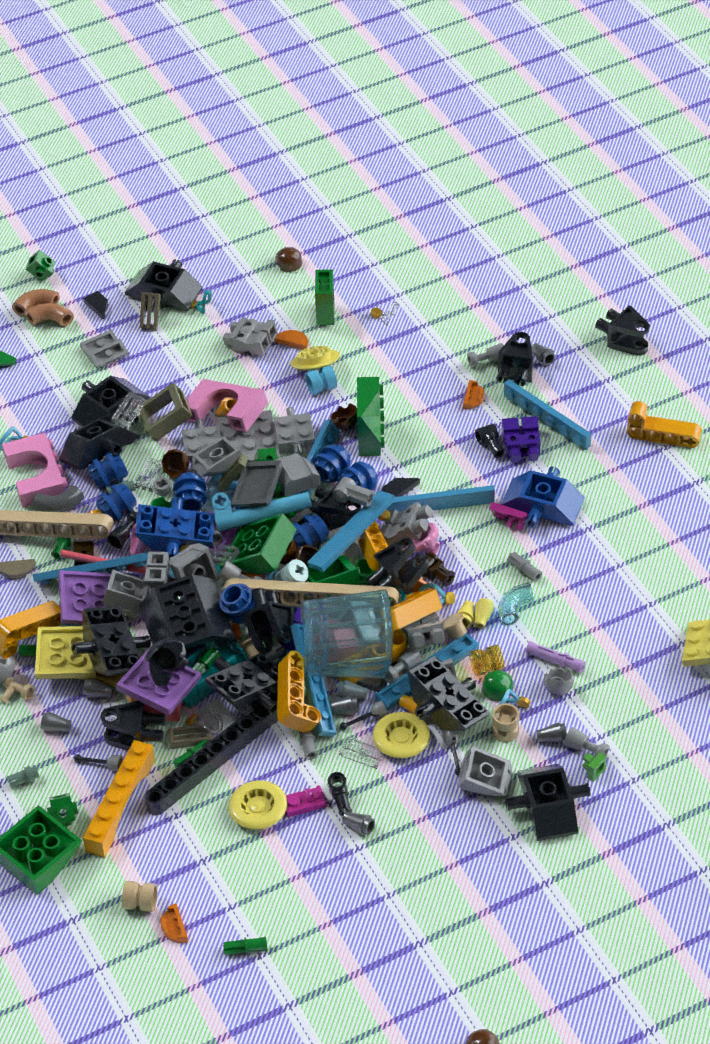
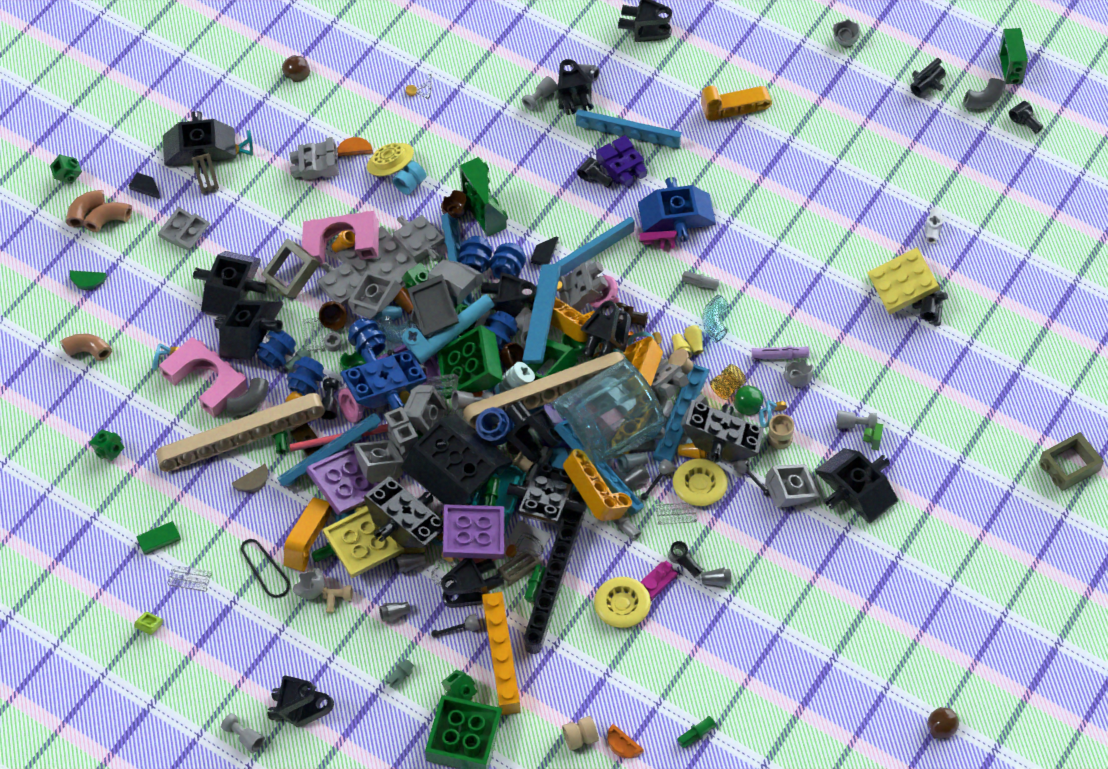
camera: 30 degrees left, 10 degrees up
(122, 421) = (258, 296): clear tile -> none
(165, 656) = (472, 506): black piece -> none
(233, 473) = (399, 303): olive plate -> none
(324, 297) = (363, 95): green window -> none
(348, 490) = (519, 277): light grey piece -> none
(474, 395) = (551, 136): orange tile -> none
(552, 733) = (823, 422): flat silver cone -> none

